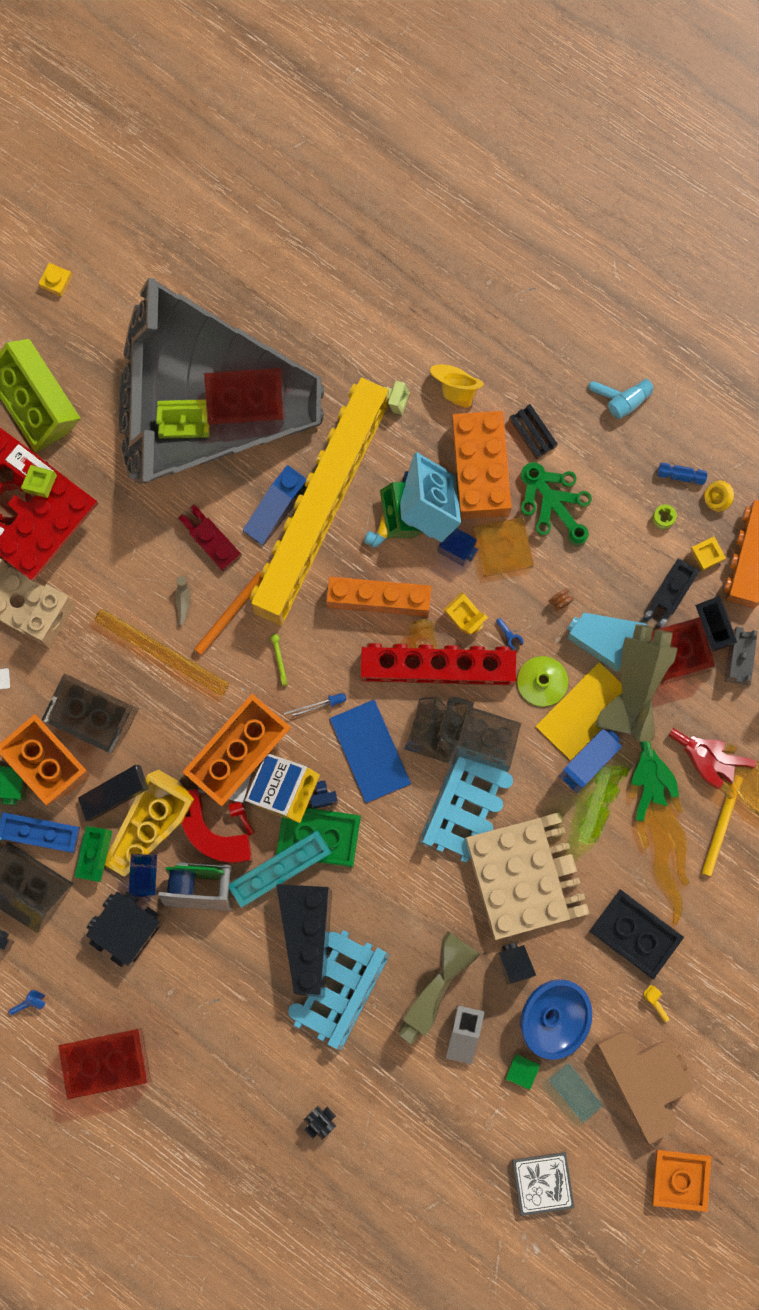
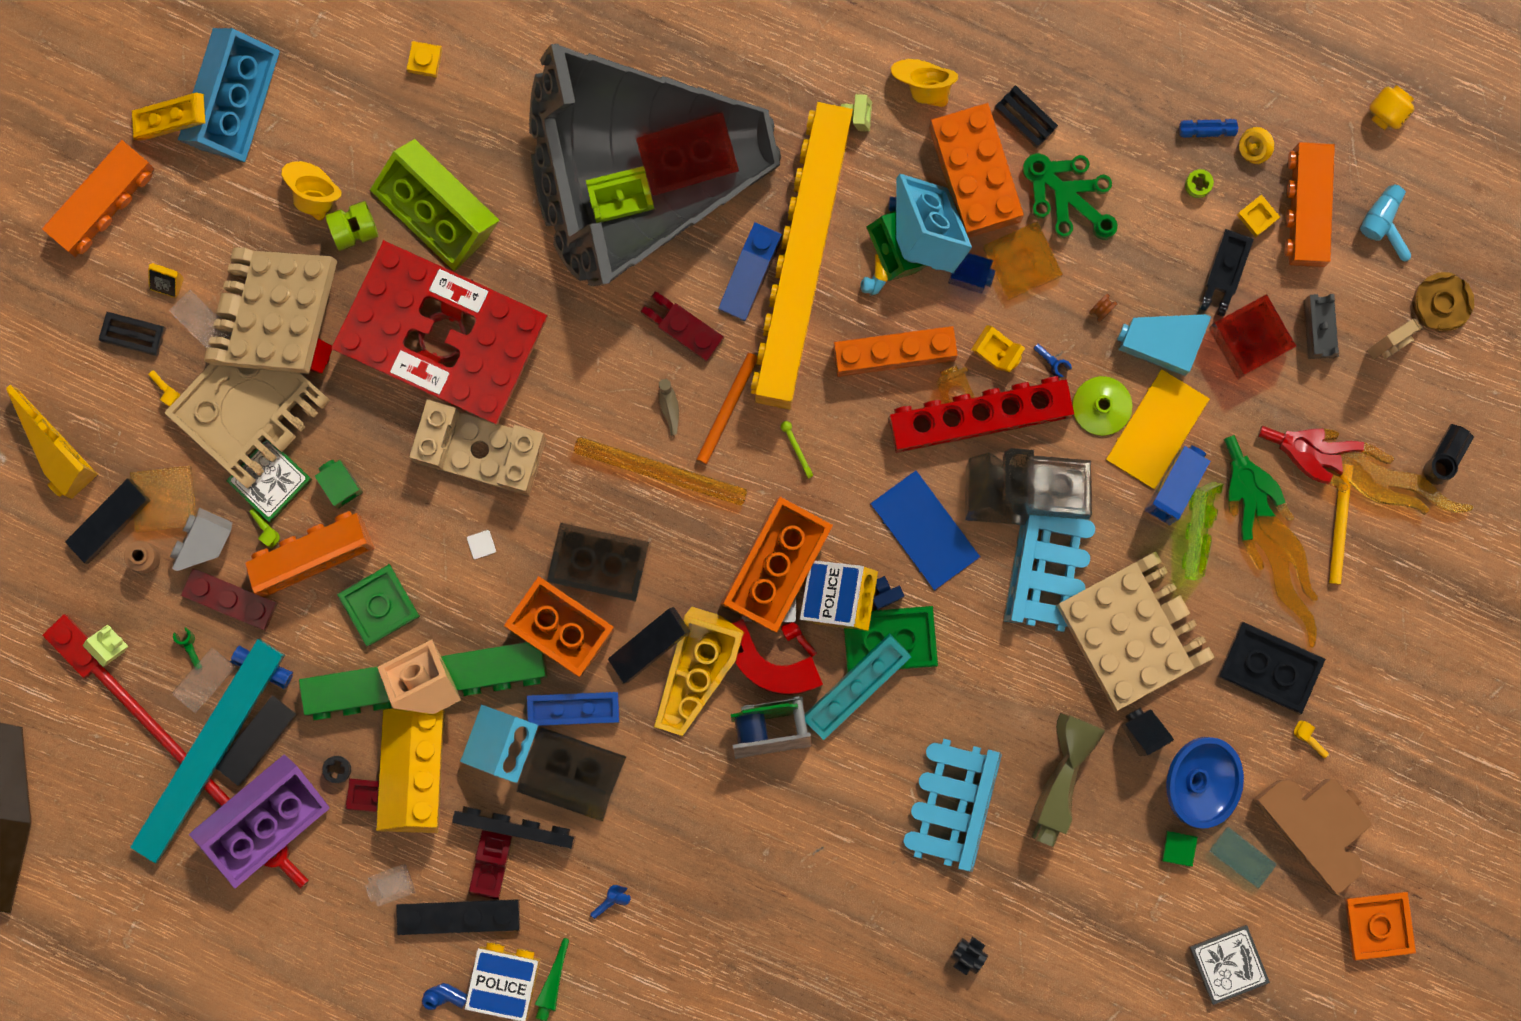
camera: 15 degrees left, 5 degrees up
(38, 481) = (477, 308): lime plate -> none
(93, 854) = (642, 718): green plate -> none
(104, 1063) = (715, 947): clear red brick -> none
(123, 928) = (697, 793): black brick -> none
(142, 874) = (705, 729): clear blue brick -> none
(306, 933) = (904, 748): black wedge -> none
(333, 700) = (869, 482): piece -> none
(464, 1034) = (1107, 822): light grey slope -> none
(626, 401) = (1122, 59): medium azure piece -> none
(642, 670) = (1215, 373): olive hips -> none
(716, 623) = (1287, 297): black slope -> none

